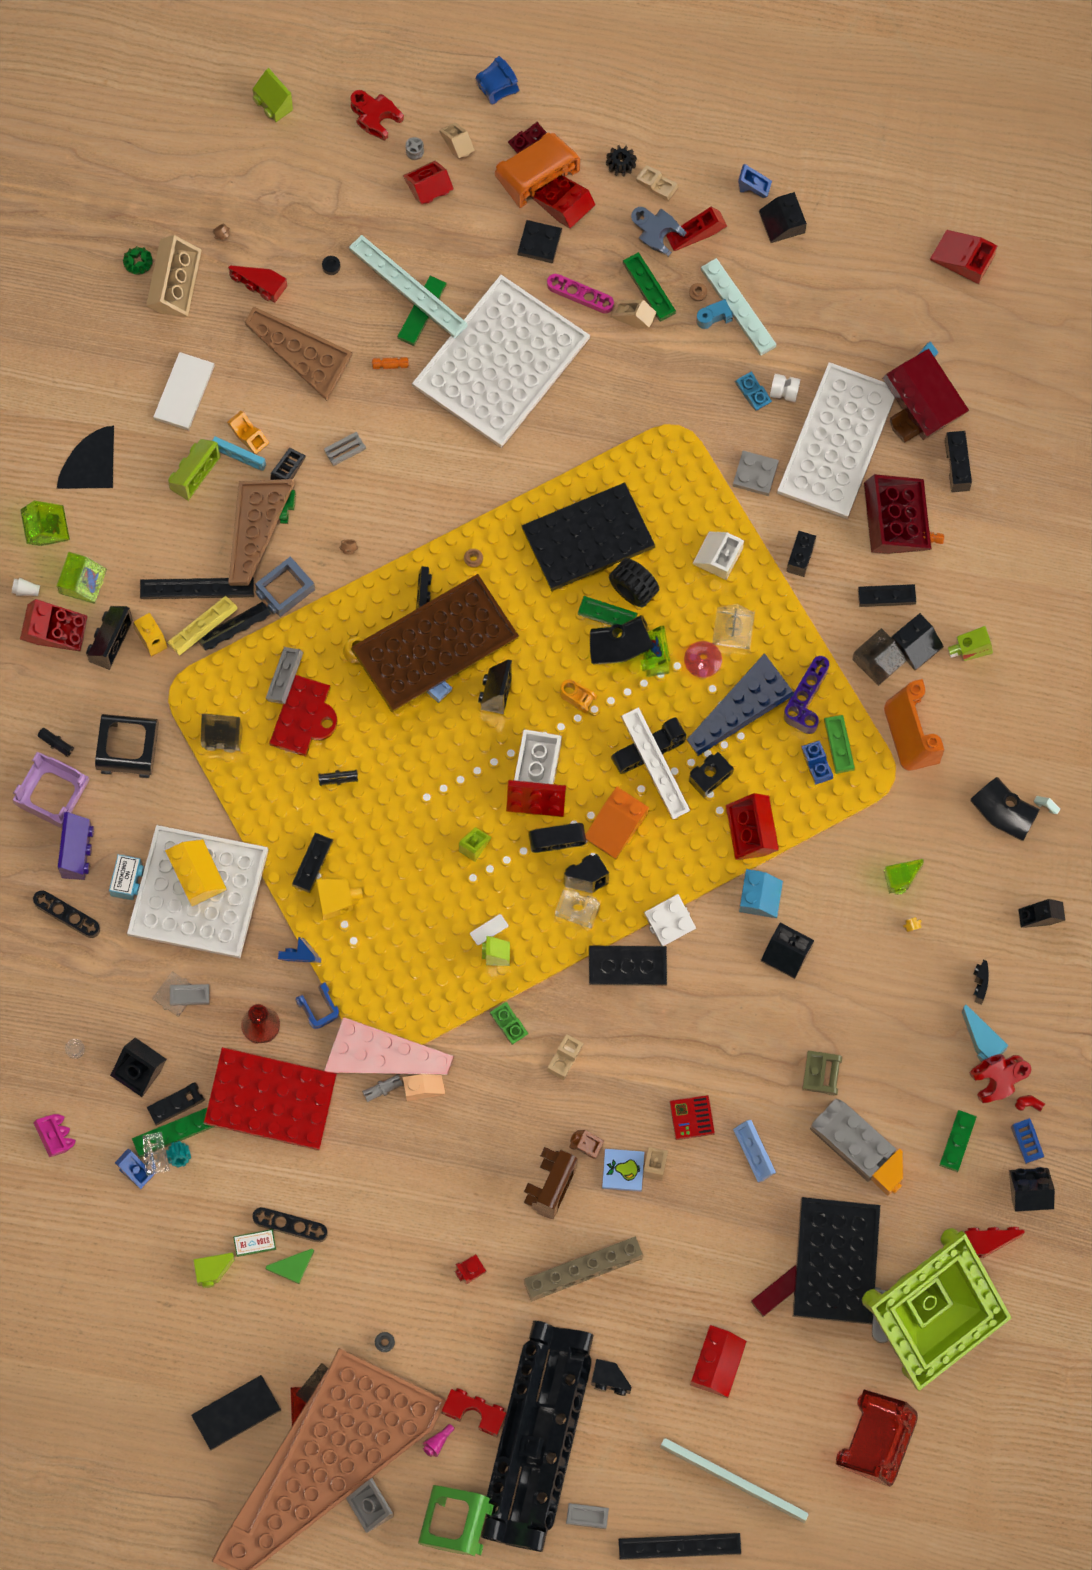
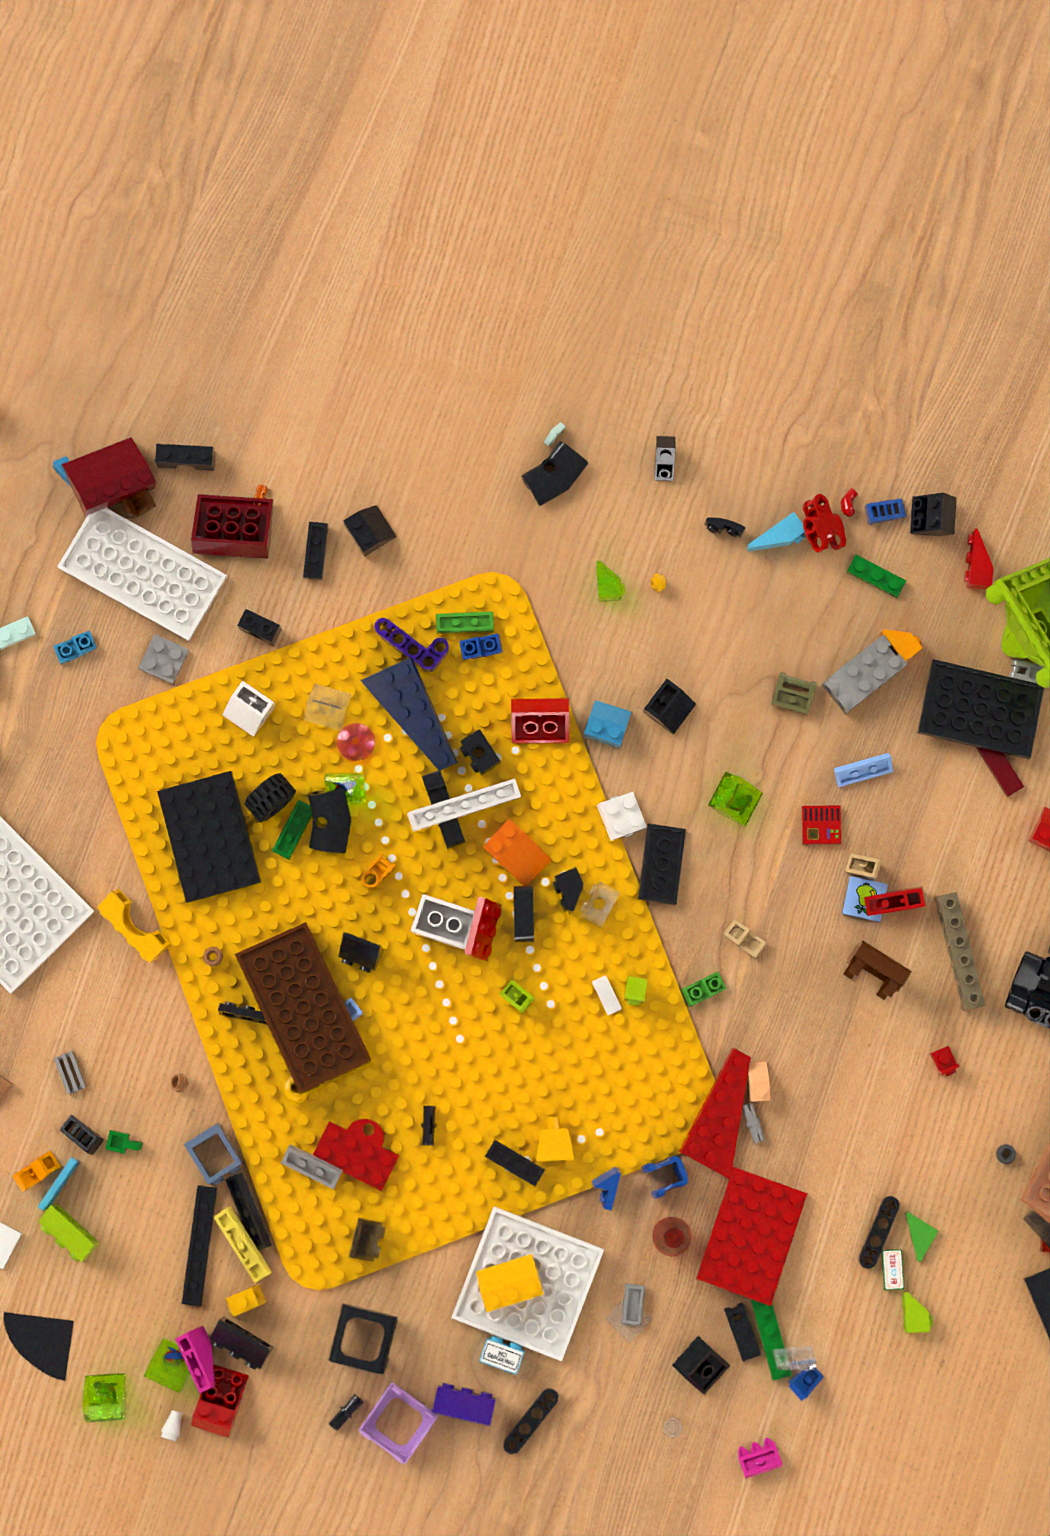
camera: 80 degrees left, 10 degrees up
(93, 598) = (197, 1353): none -> dark pink slope
(178, 1154) = (796, 1335): teal gear -> none
(256, 516) = (133, 1174): medium nougat wing -> none
(505, 465) = (117, 910): none -> yellow arch
(586, 1143) = (835, 931): dark orange bracket -> none
(625, 1198) = (895, 901): none -> red slope
(704, 1028) = (735, 798): none -> clear neon green slope
(785, 387) = (76, 621): white wheel -> none
(879, 657) = (380, 568): clear smoke slope -> none
(911, 744) = (460, 553): orange windscreen -> none
(978, 643) = (382, 468): lime torso -> none

